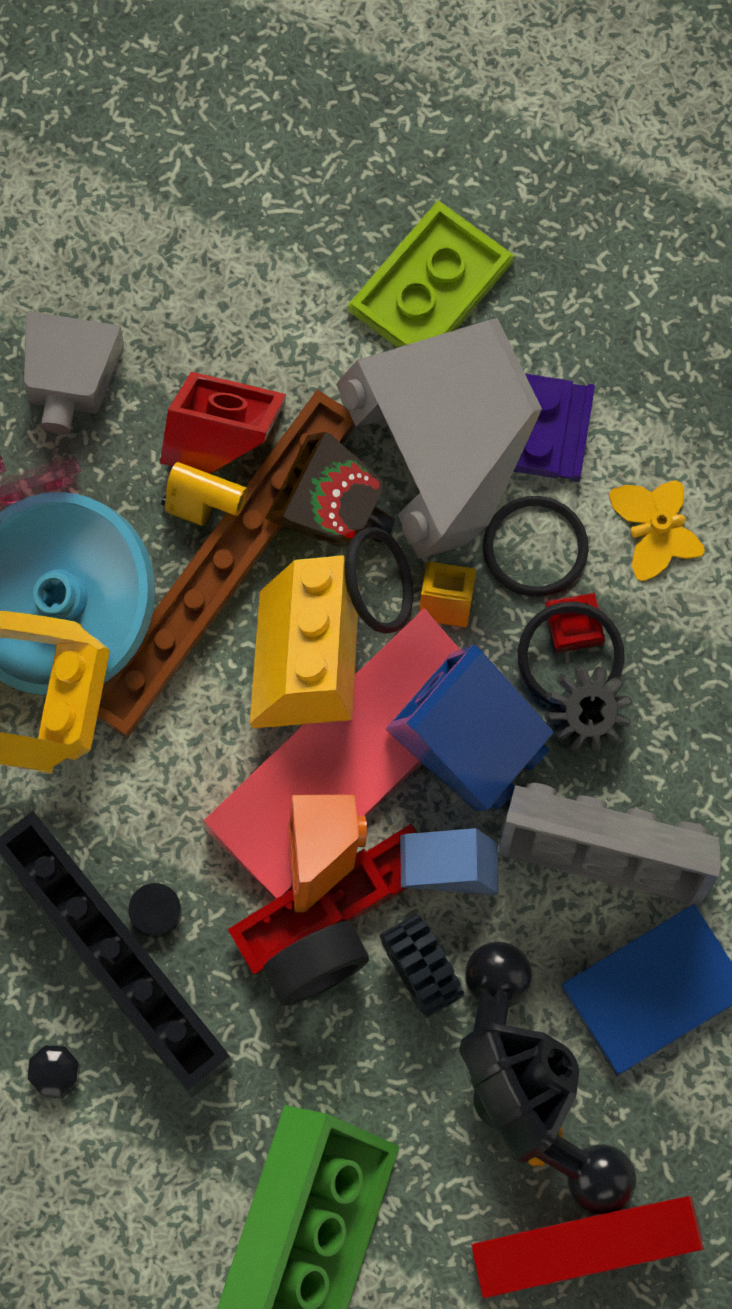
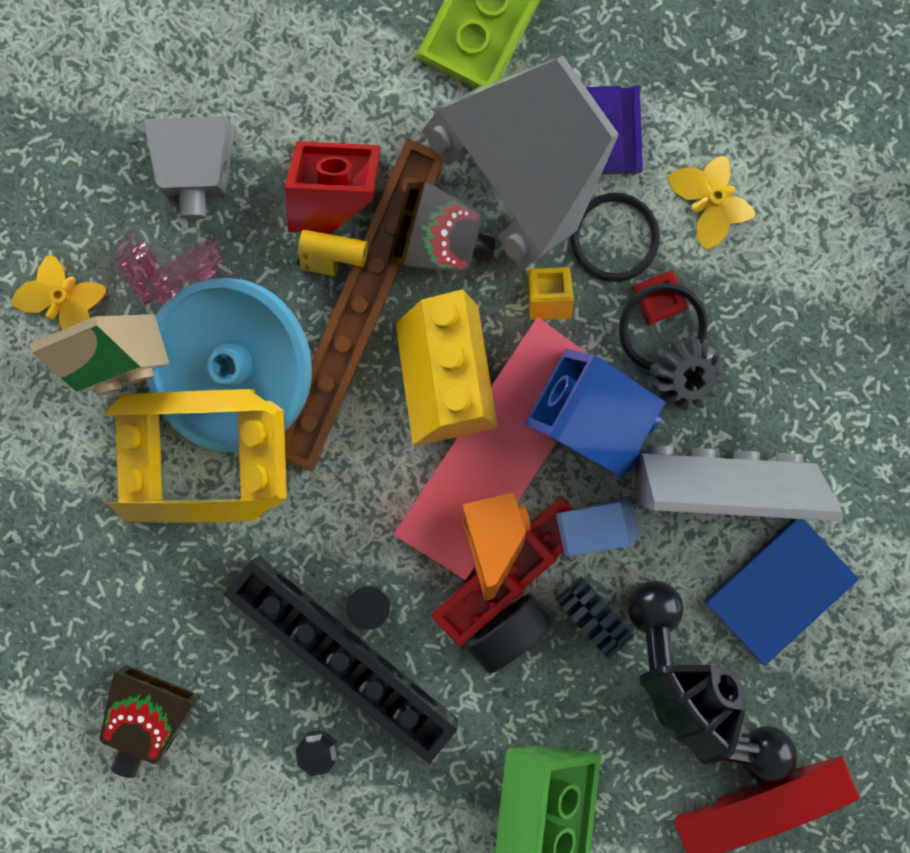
camera: 10 degrees left, 15 degrees up
(352, 585) = (472, 304): black tyre -> none

